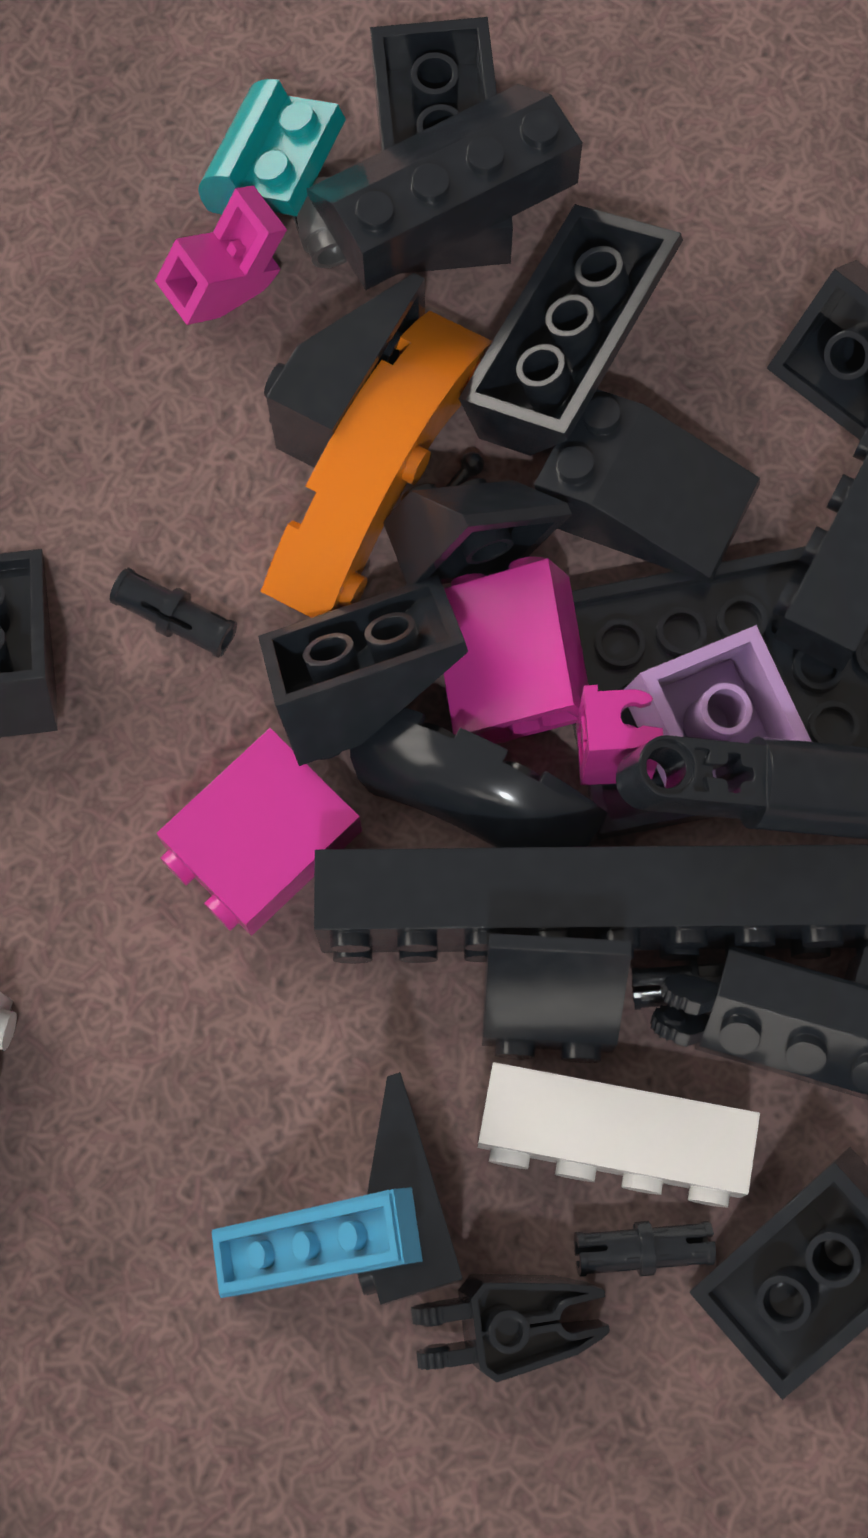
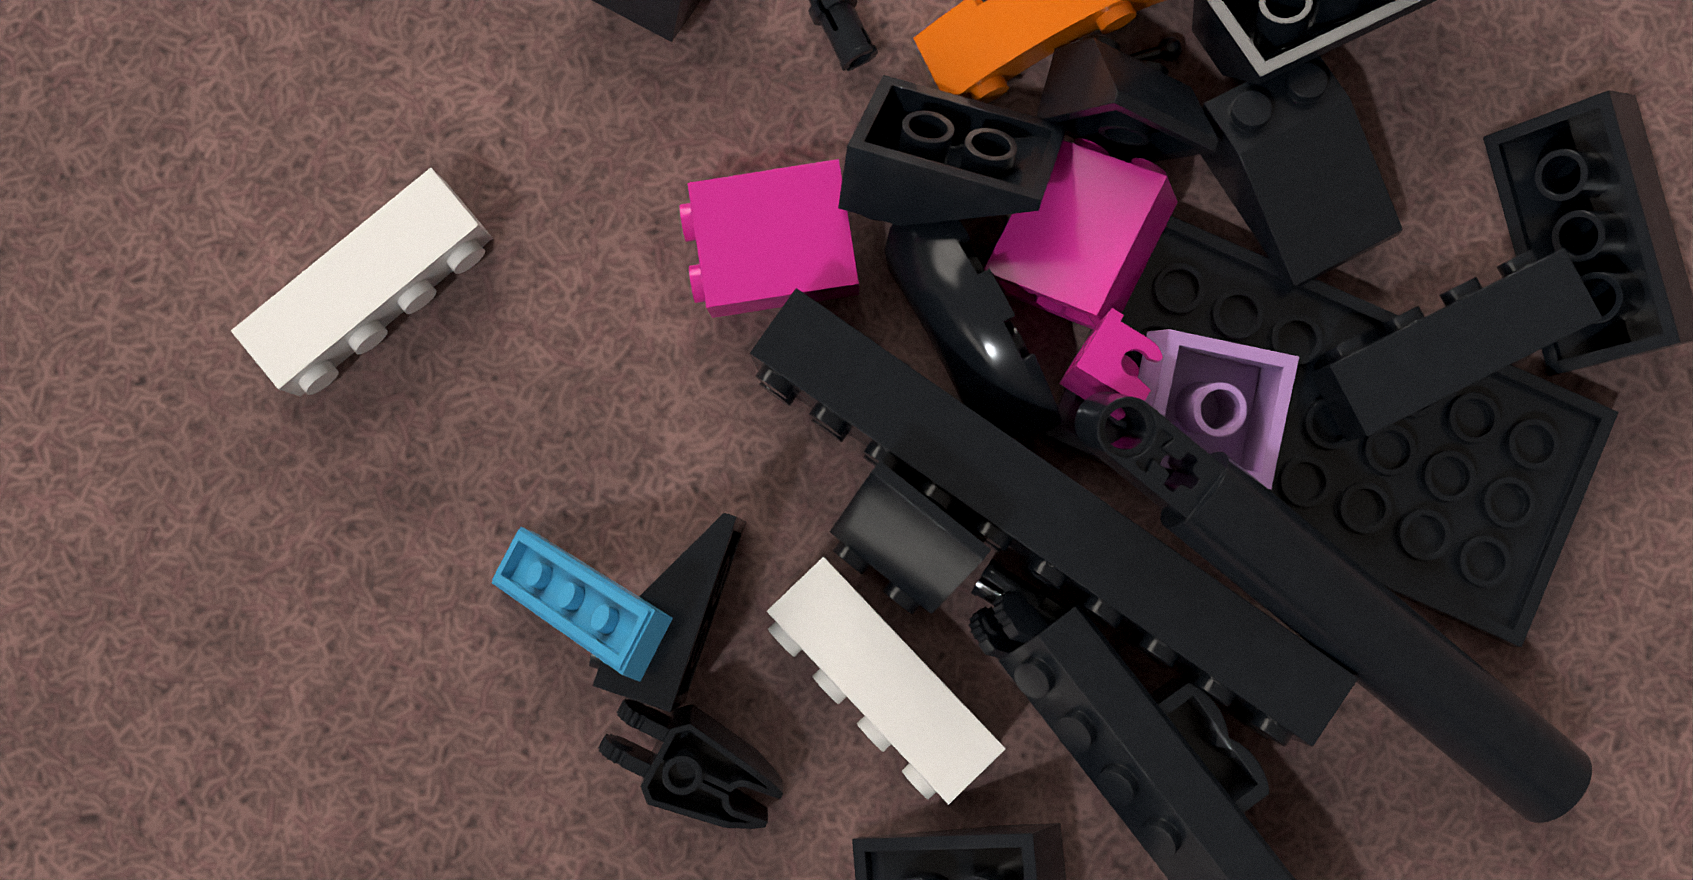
camera: 40 degrees right, 10 degrees up
(644, 1248) = (840, 782): black pin -> none

